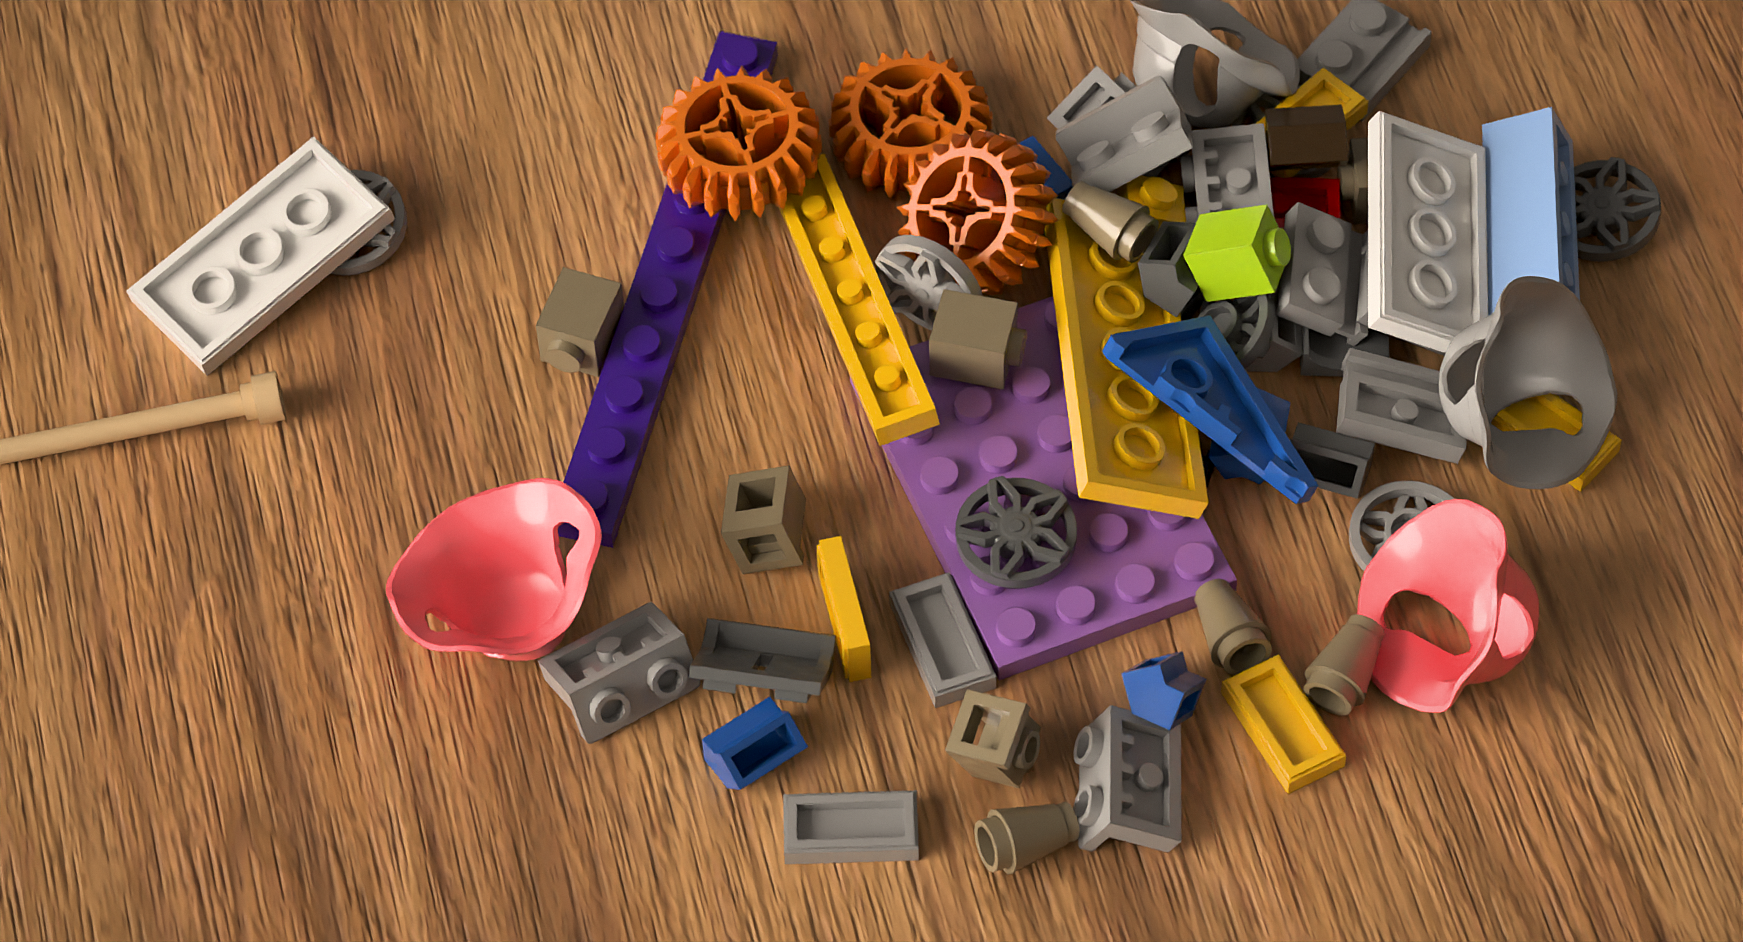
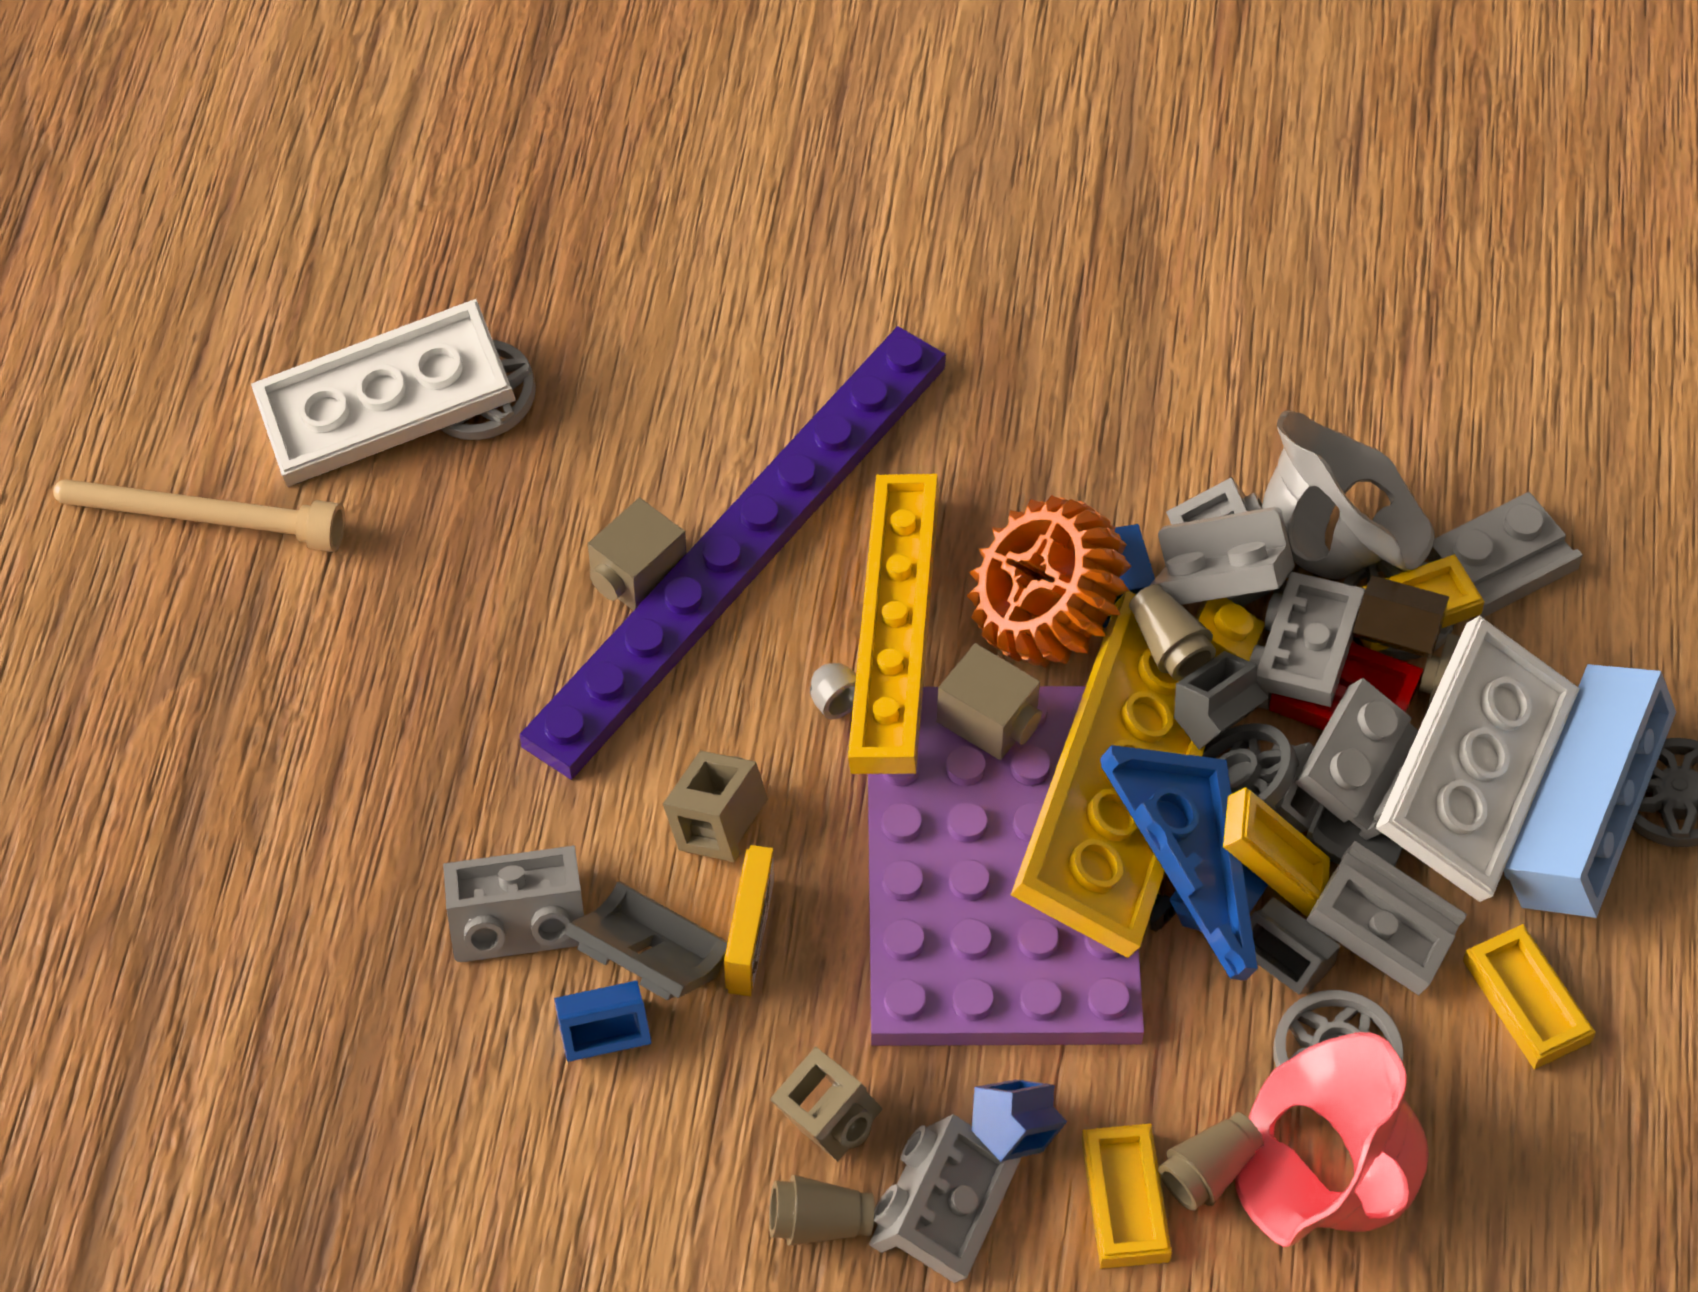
camera: 20 degrees right, 0 degrees up
(498, 571) = (431, 767): coral piece -> none
(707, 160) = (888, 452): orange gear -> none
(821, 380) = (833, 690): none -> light grey hinge
(850, 827) = (659, 1138): light grey tile -> none
(905, 107) = (1036, 455): orange gear -> none
(918, 285) = (968, 623): light grey wheel -> none
(942, 639) = (833, 985): light grey tile -> none
(1016, 532) = (944, 906): dark grey wheel -> none
(1231, 628) = (1115, 1079): dark tan cone -> none
(1237, 253) = (1277, 707): lime brick -> none
(1285, 380) = (1275, 850): none -> yellow tile
(1526, 349) = (1527, 902): light grey piece -> none

